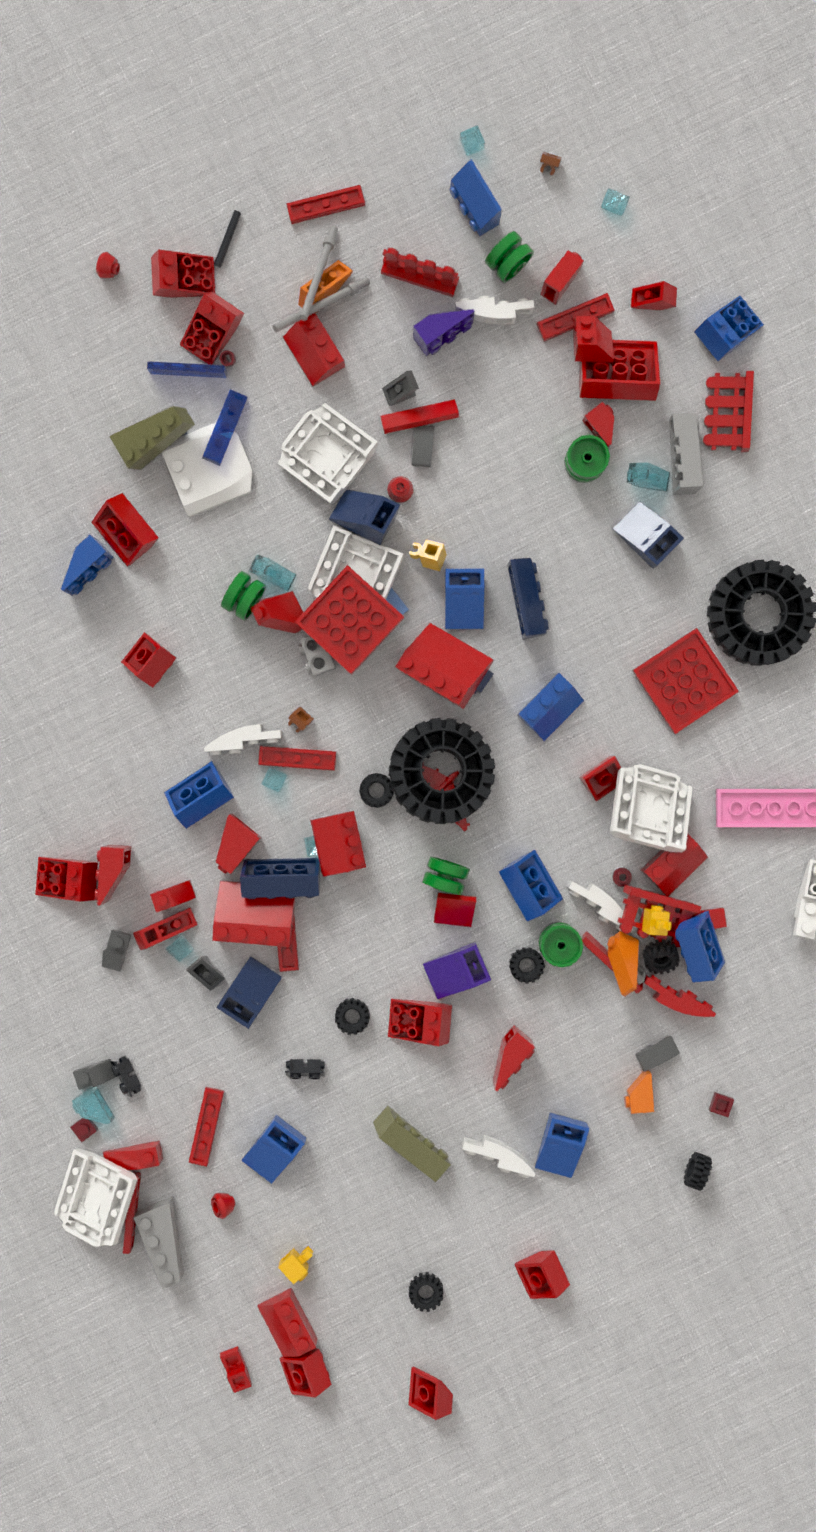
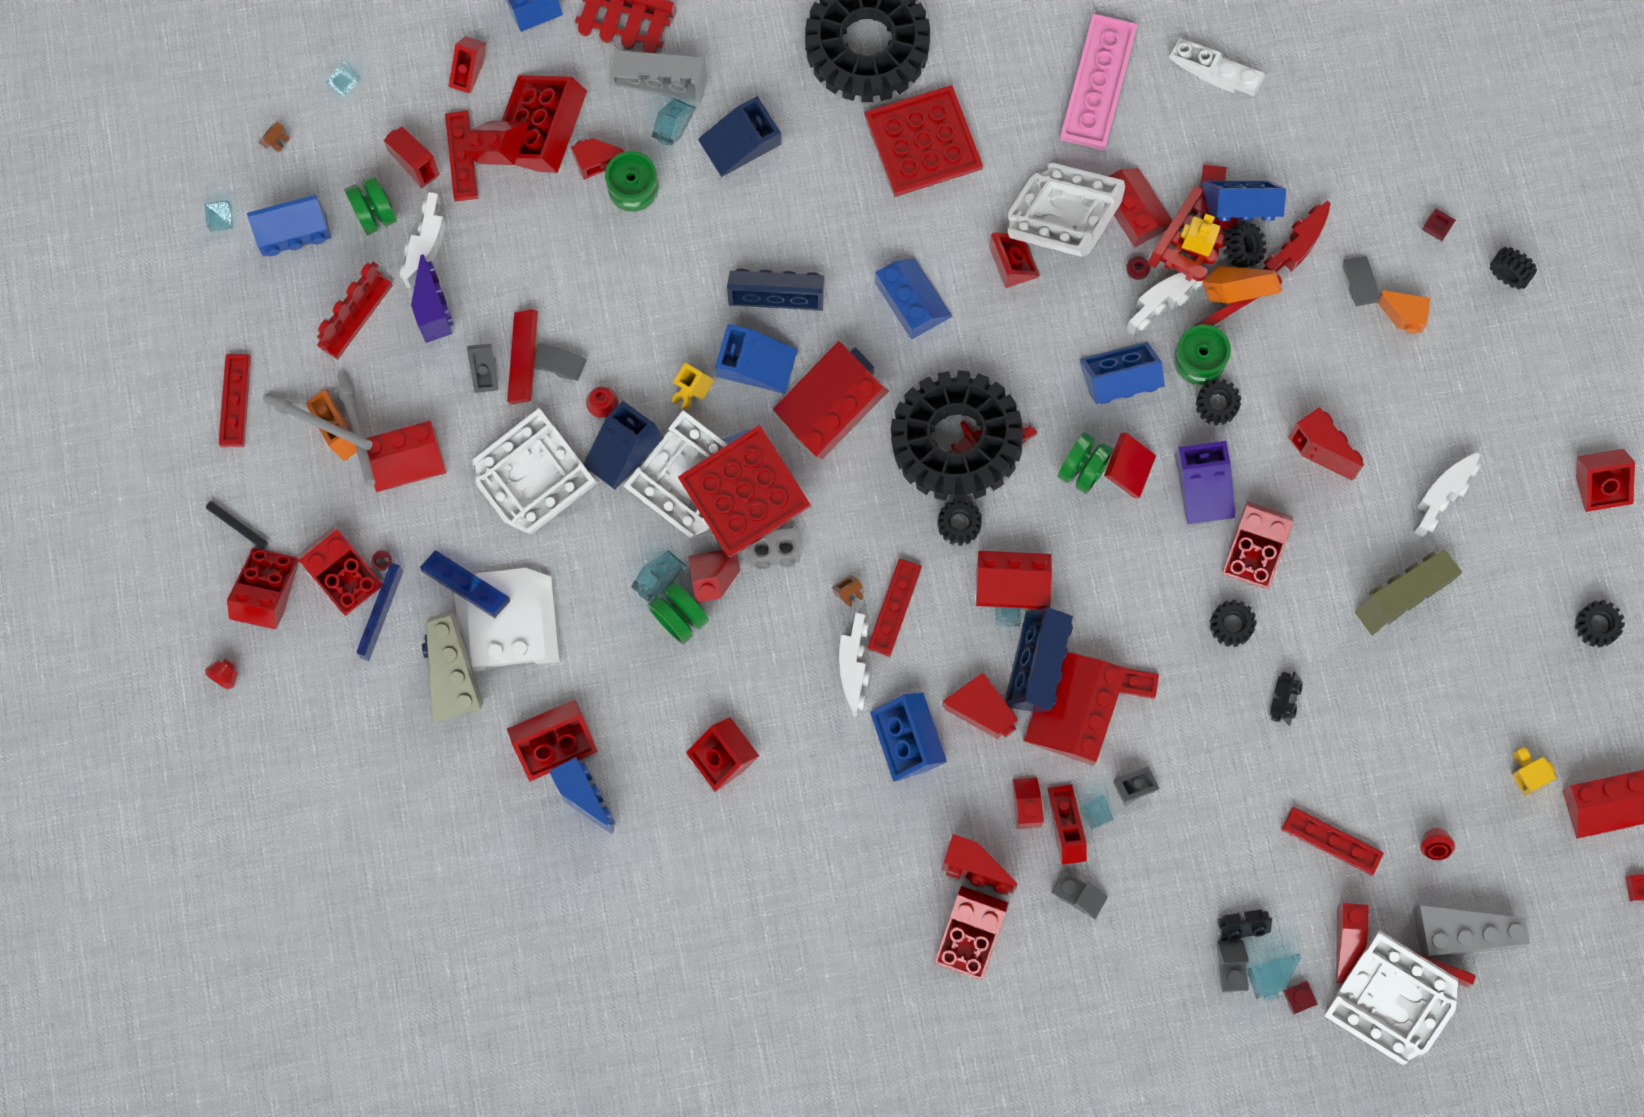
camera: 70 degrees left, 15 degrees down
(249, 992) = (1173, 738): dark blue slope -> none
(274, 779) = (913, 641): clear light blue slope -> none
(274, 1149) = (1380, 761): blue slope -> none
(562, 1145) = (1449, 416): blue slope -> none

